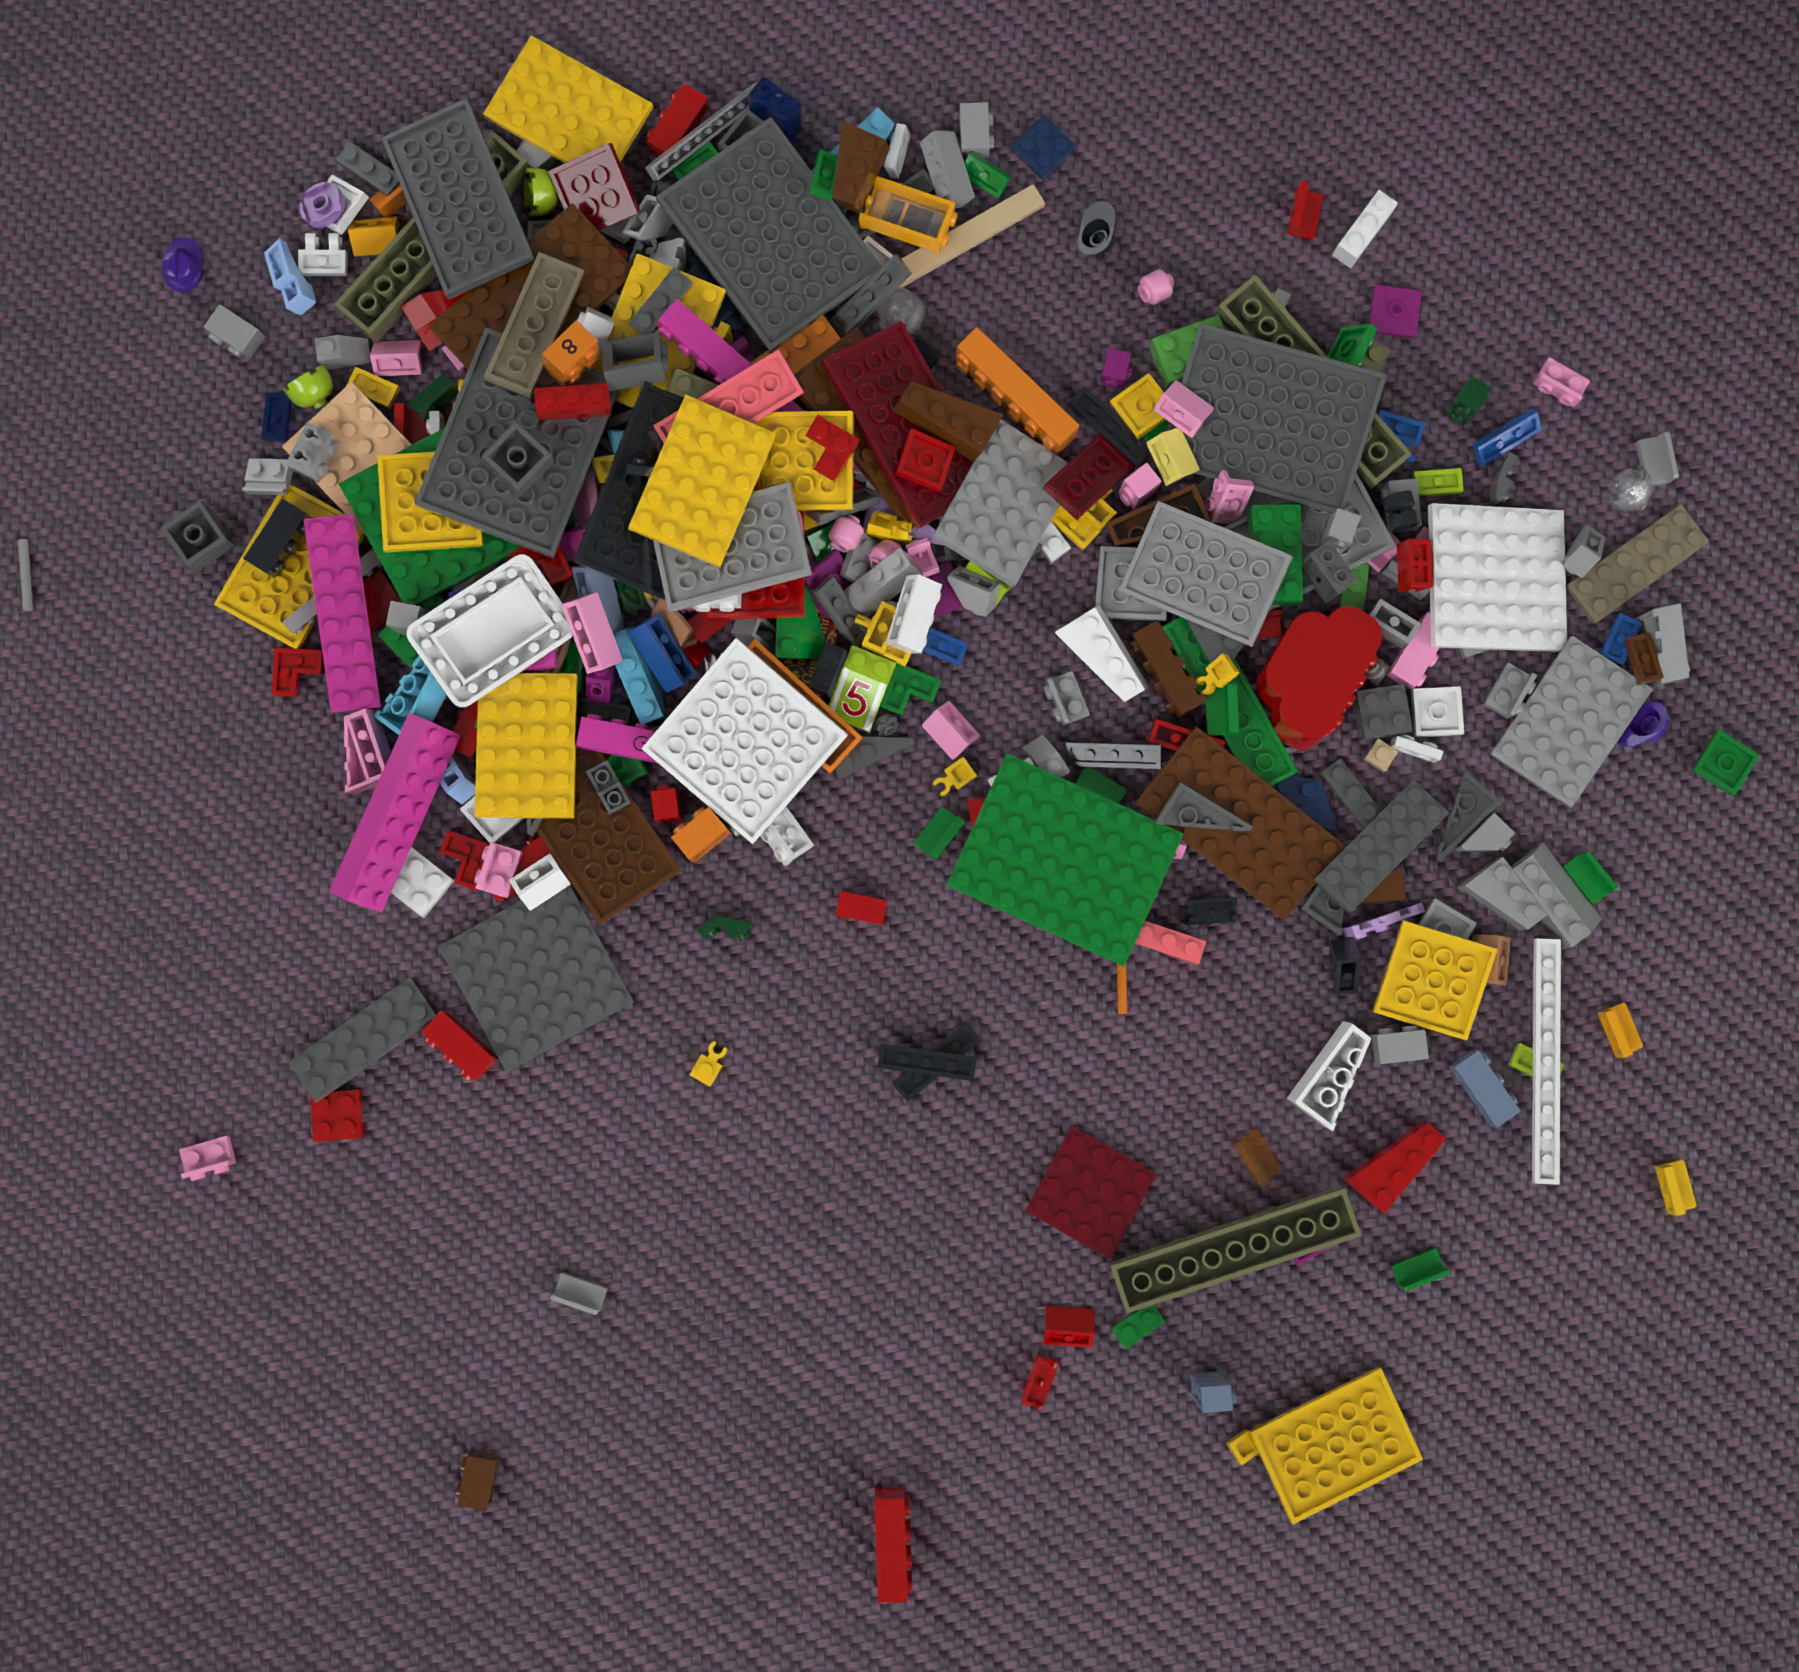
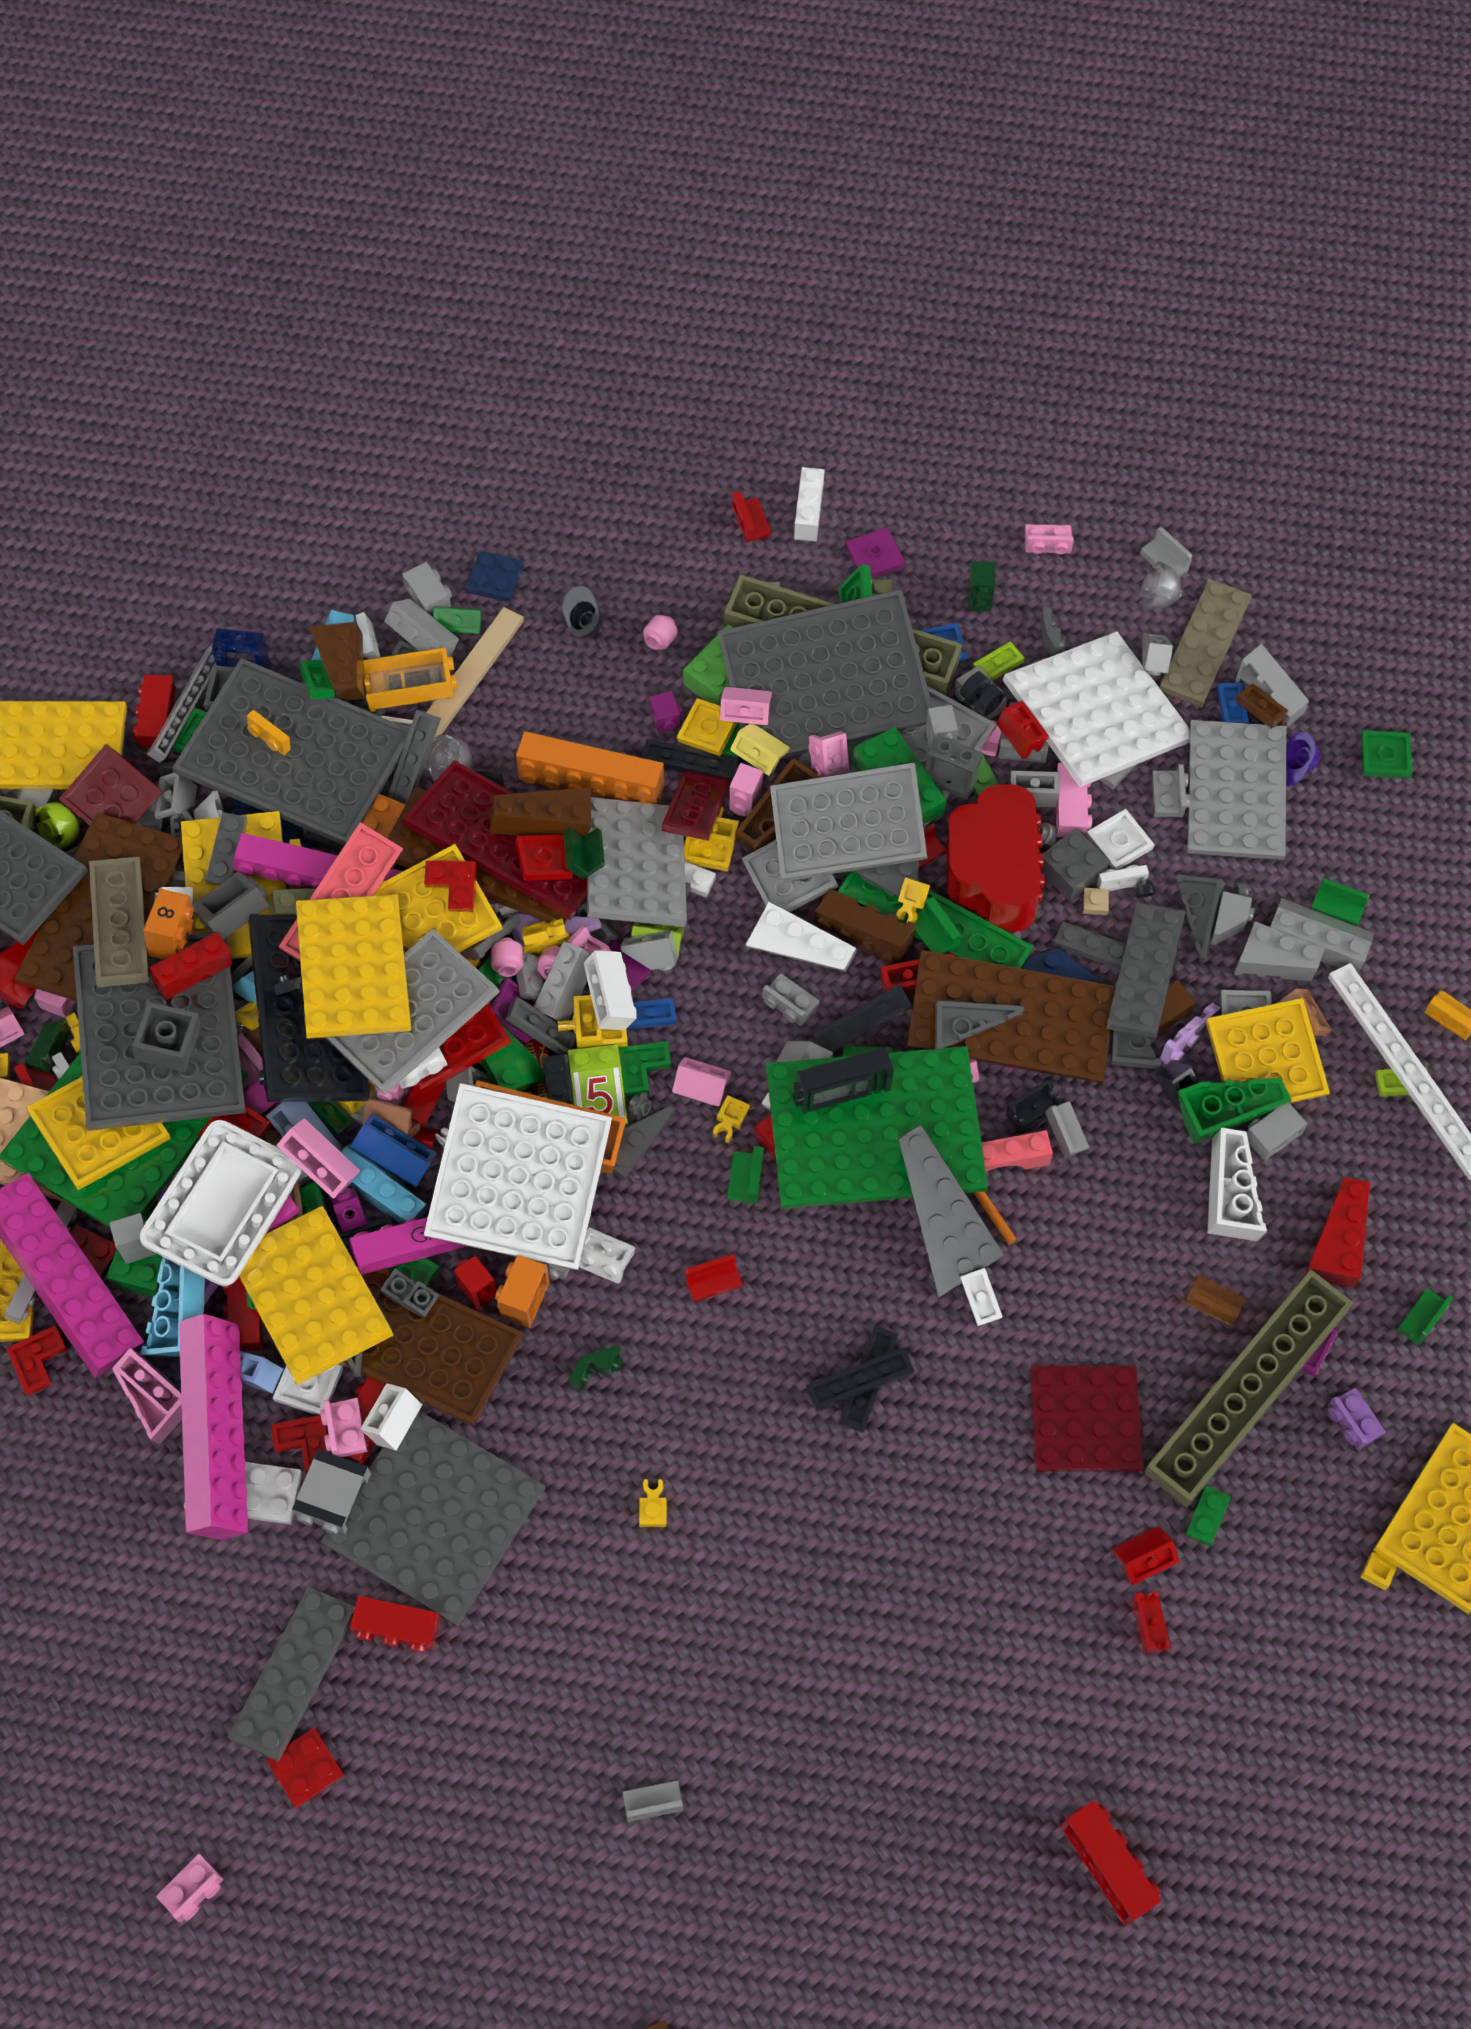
camera: 30 degrees left, 20 degrees down
(461, 915) = (329, 1491): none -> light grey panel
(756, 217) = (274, 737): none -> light orange plate
(962, 474) = (585, 853): none -> dark green panel
(1055, 812) = (843, 1080): none -> black door
(1066, 1047) = (981, 1296): none -> white plate
(1075, 977) = (948, 1222): none -> dark grey wing
(1212, 1392) = (1315, 1526): sand blue brick -> none
(1226, 946) = (1066, 1129): none -> light grey panel
(1306, 1318) = (1355, 1418): none -> medium lavender bracket
(1367, 1003) = (1228, 1104): none -> green wedge
(1428, 770) = (1145, 890): none -> black hinge
(1485, 1088) = (1373, 1125): sand blue brick -> none
(1507, 437) = (1032, 599): blue plate -> none
(1511, 818) = (1241, 889): none -> dark grey hinge

